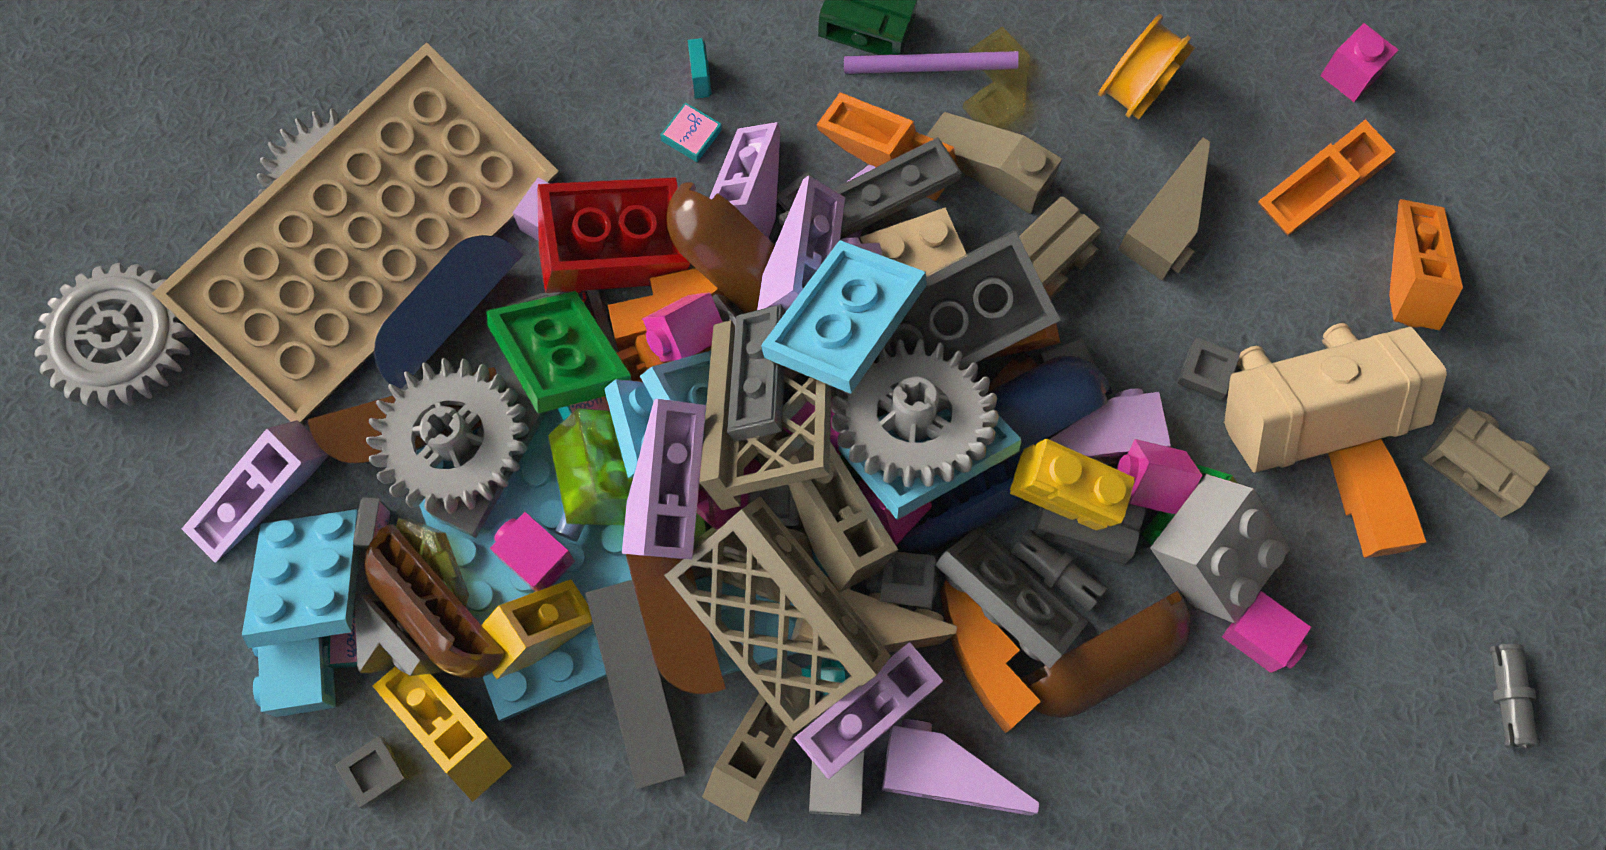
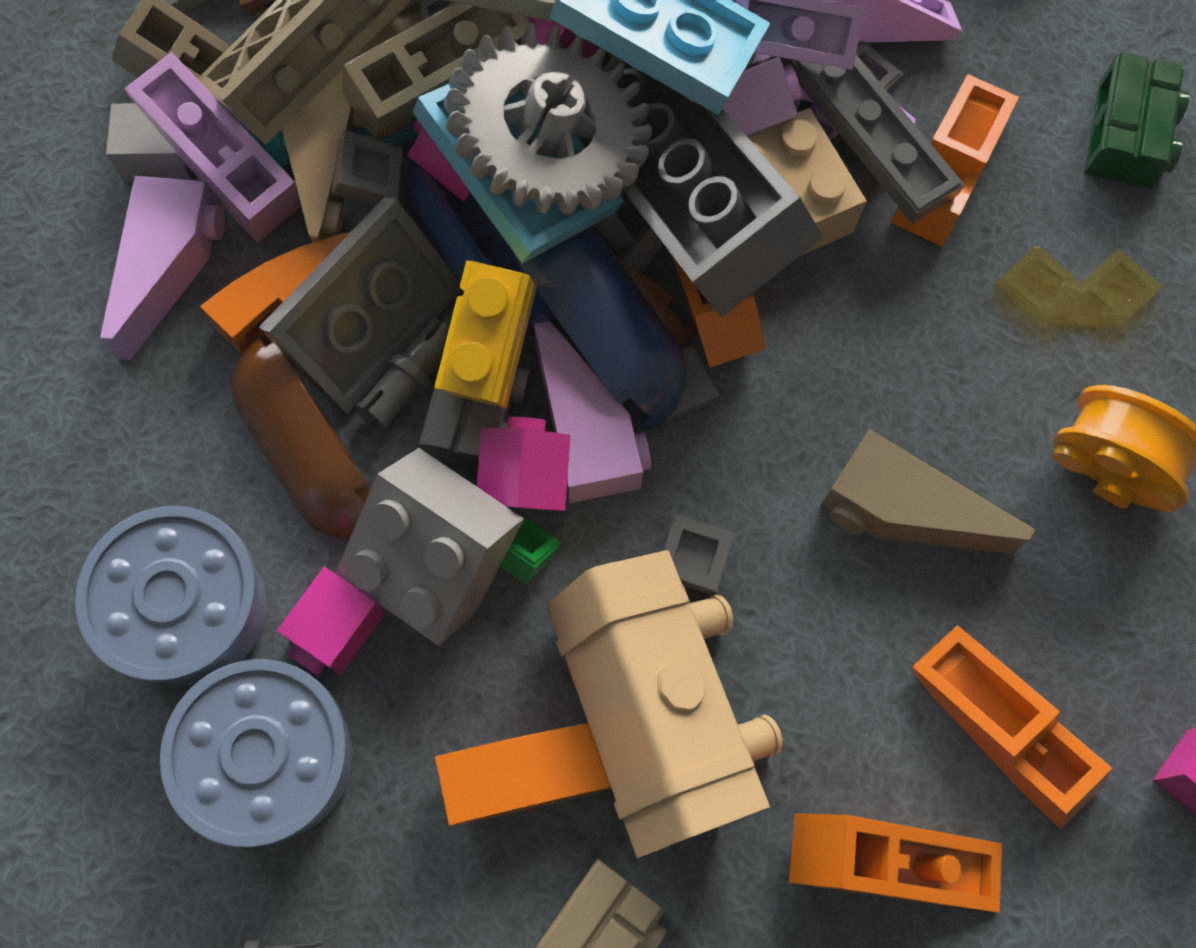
camera: 85 degrees right, 0 degrees up
(931, 62) = (1087, 204): medium lavender bar -> none
(999, 159) = (957, 283): dark tan slope -> none
(1060, 242) = (834, 347): dark tan brick -> none
(1268, 741) = (170, 596): none -> sand blue wheel
(1383, 675) = (255, 754): none -> sand blue wheel

